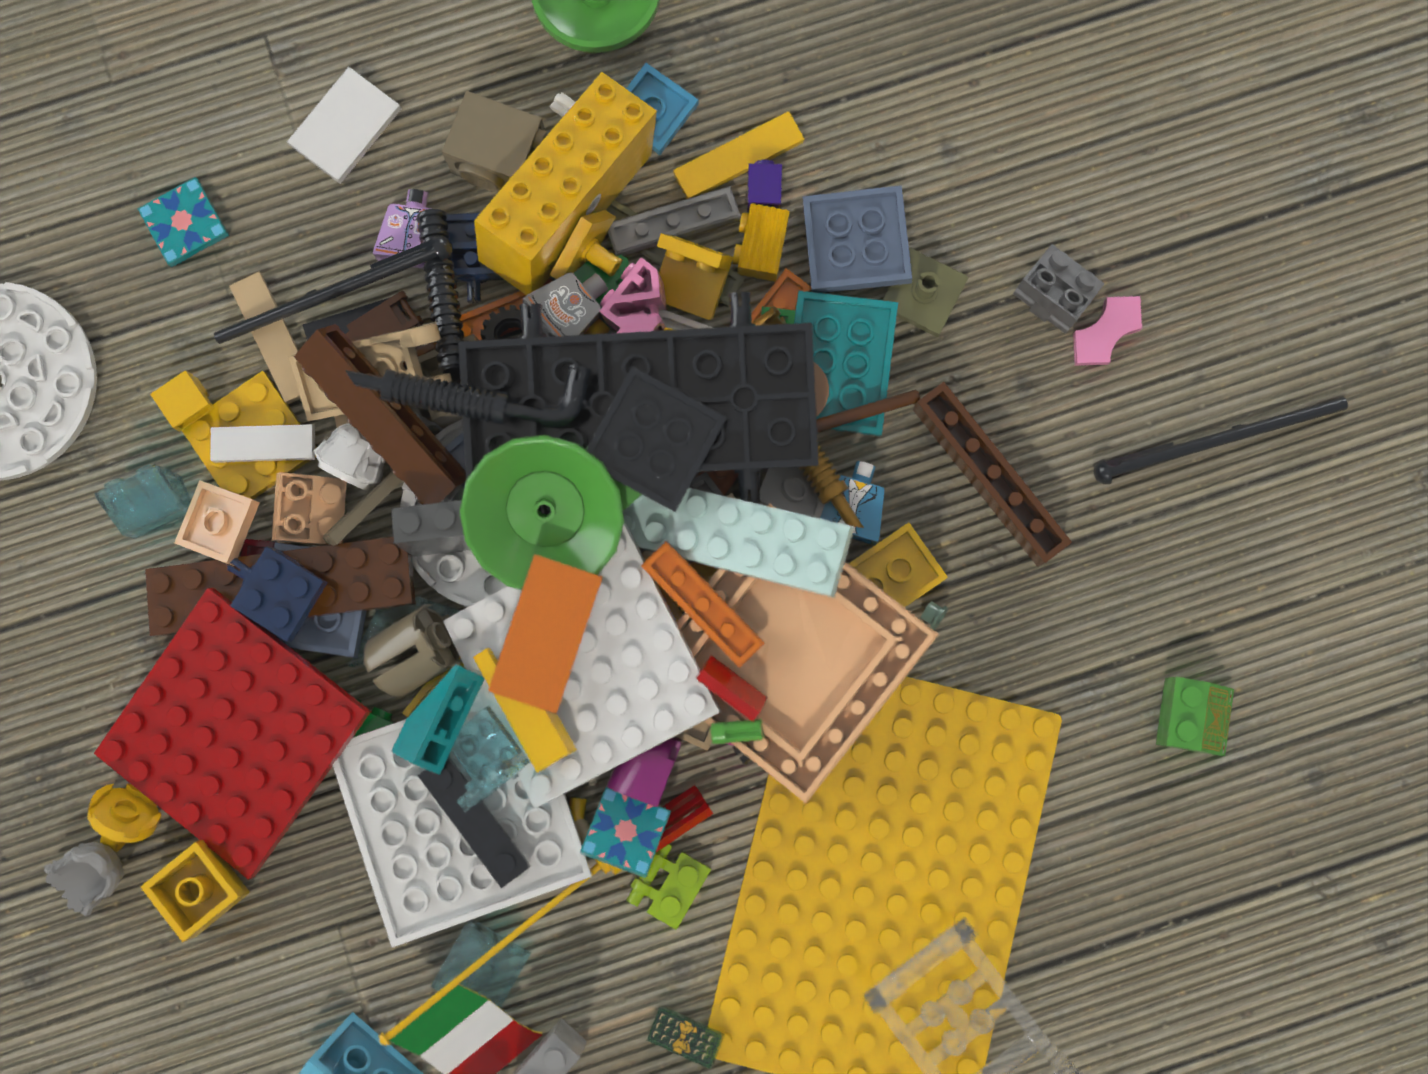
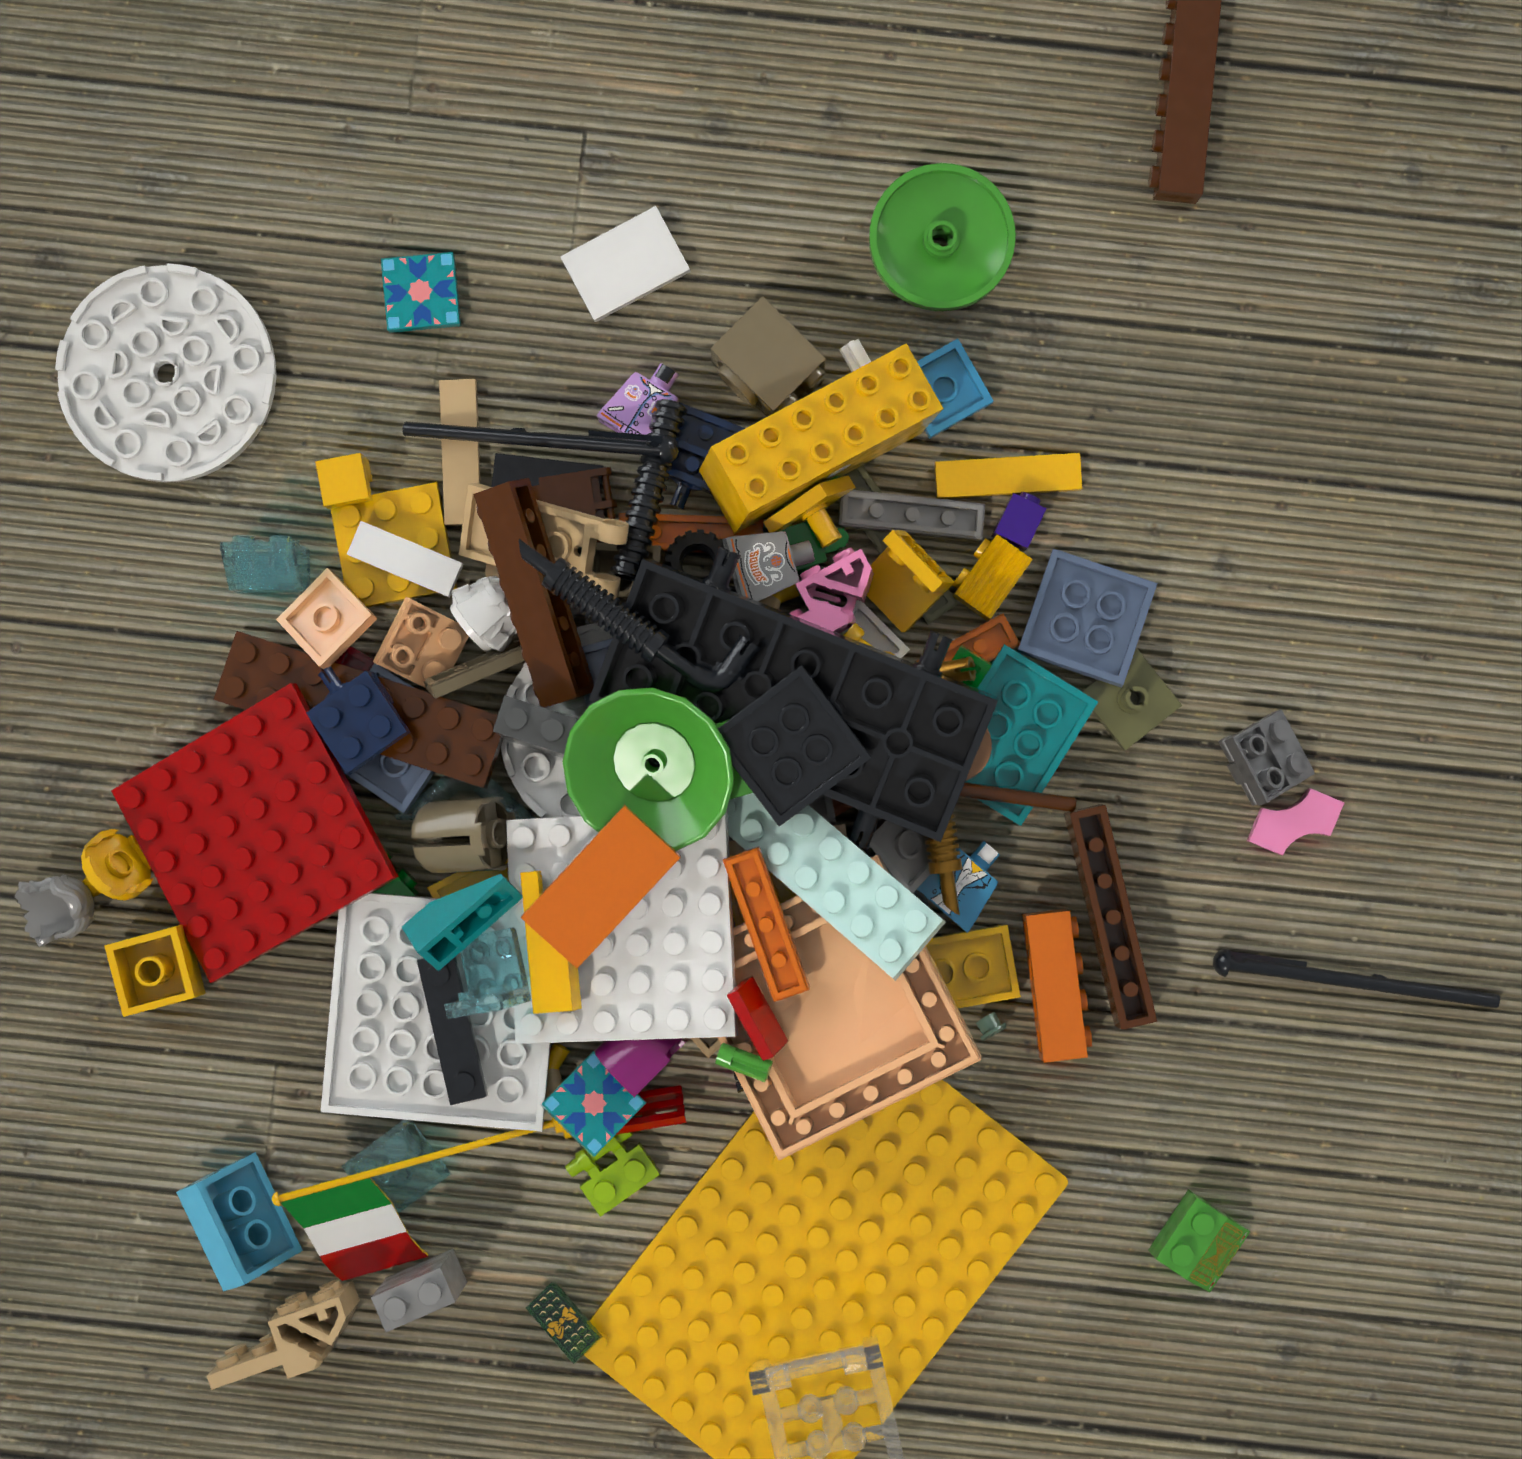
camera: 25 degrees right, 5 degrees up
(972, 554) = (1055, 985): none -> orange brick

